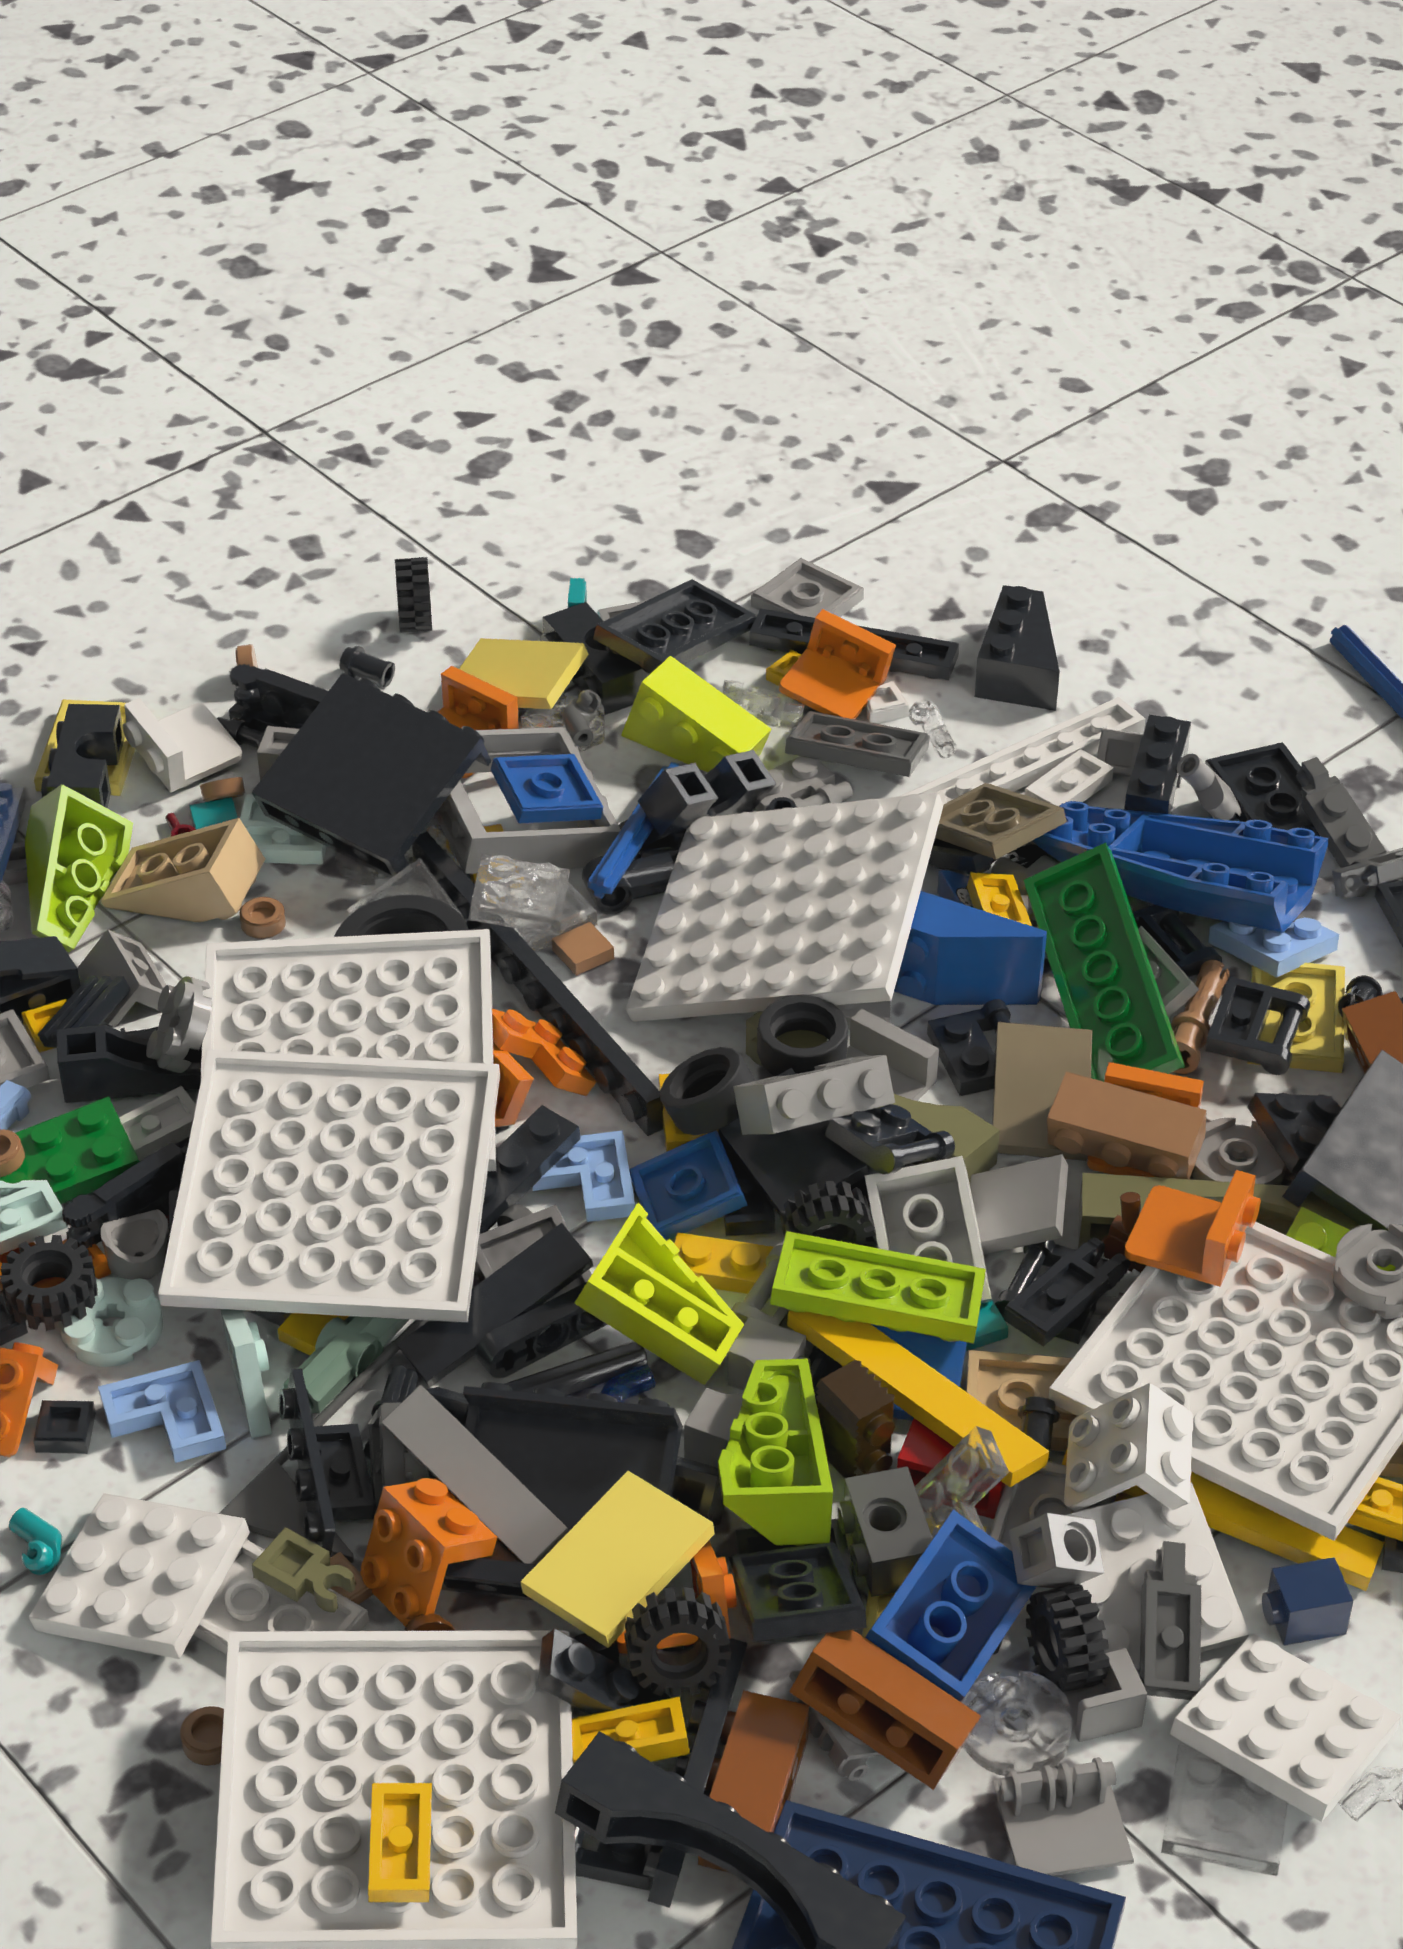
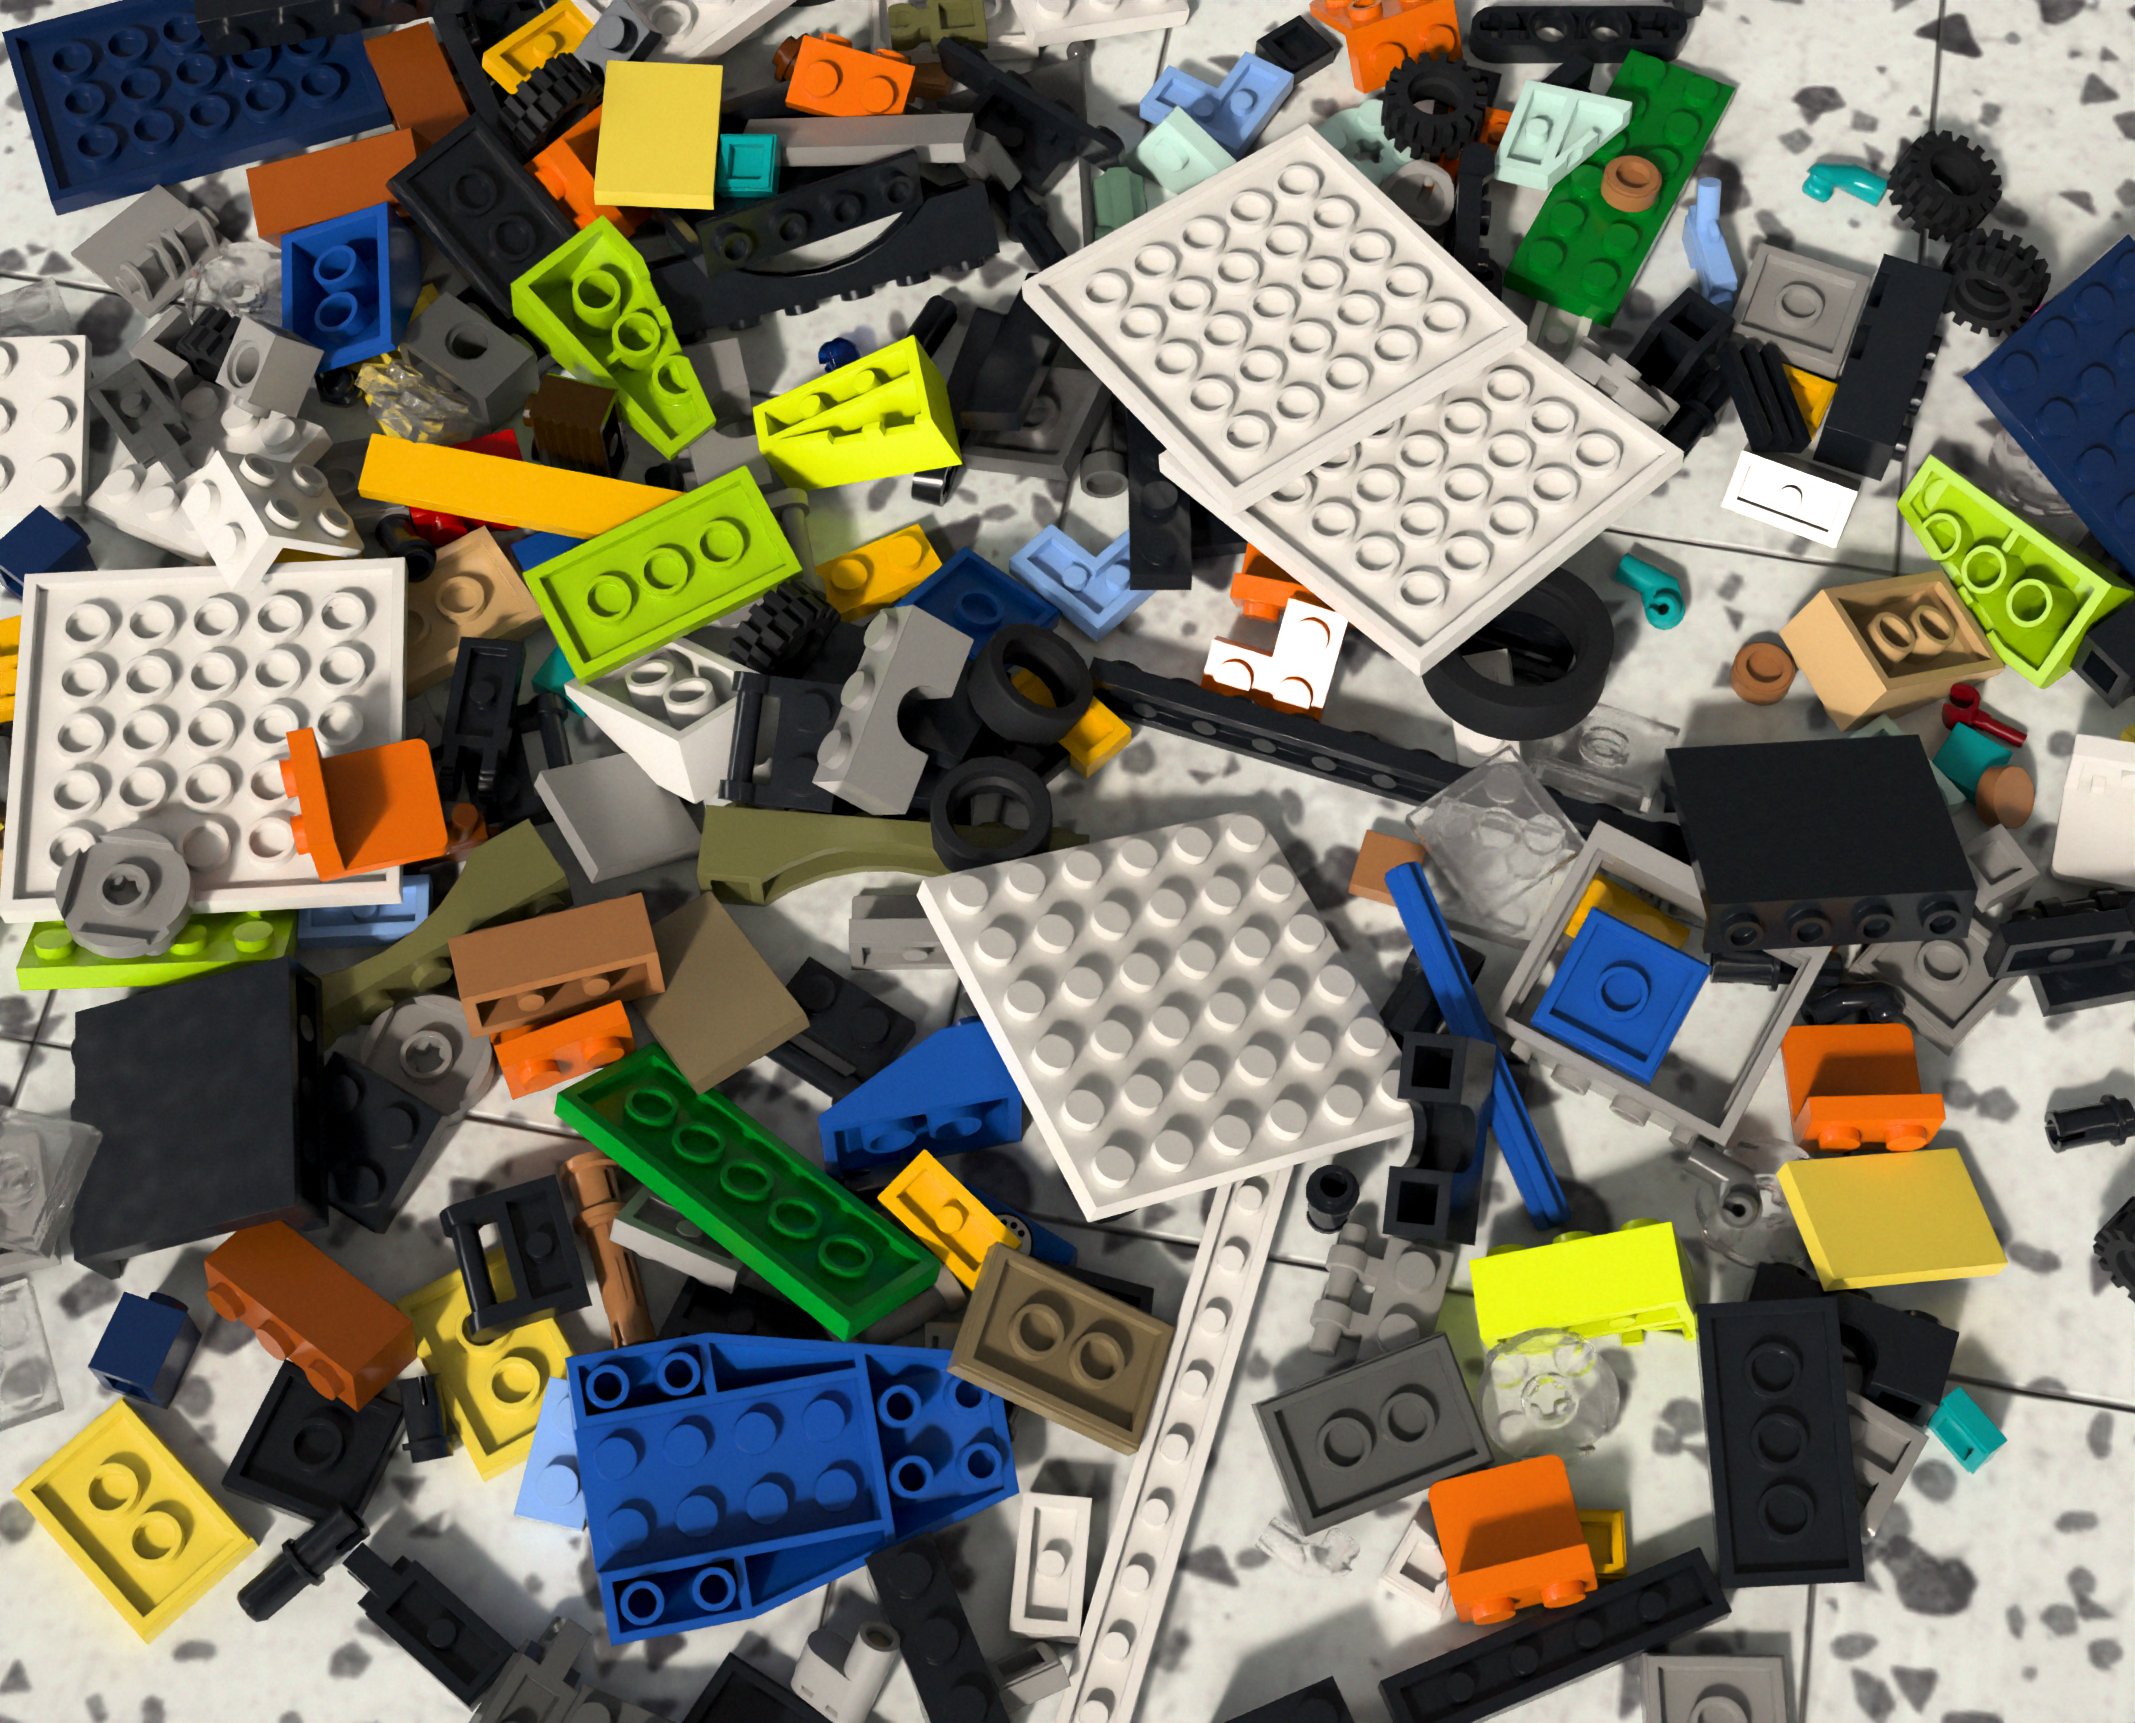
camera: 140 degrees right, 20 degrees up
(567, 1499) = (749, 165): none -> teal tile

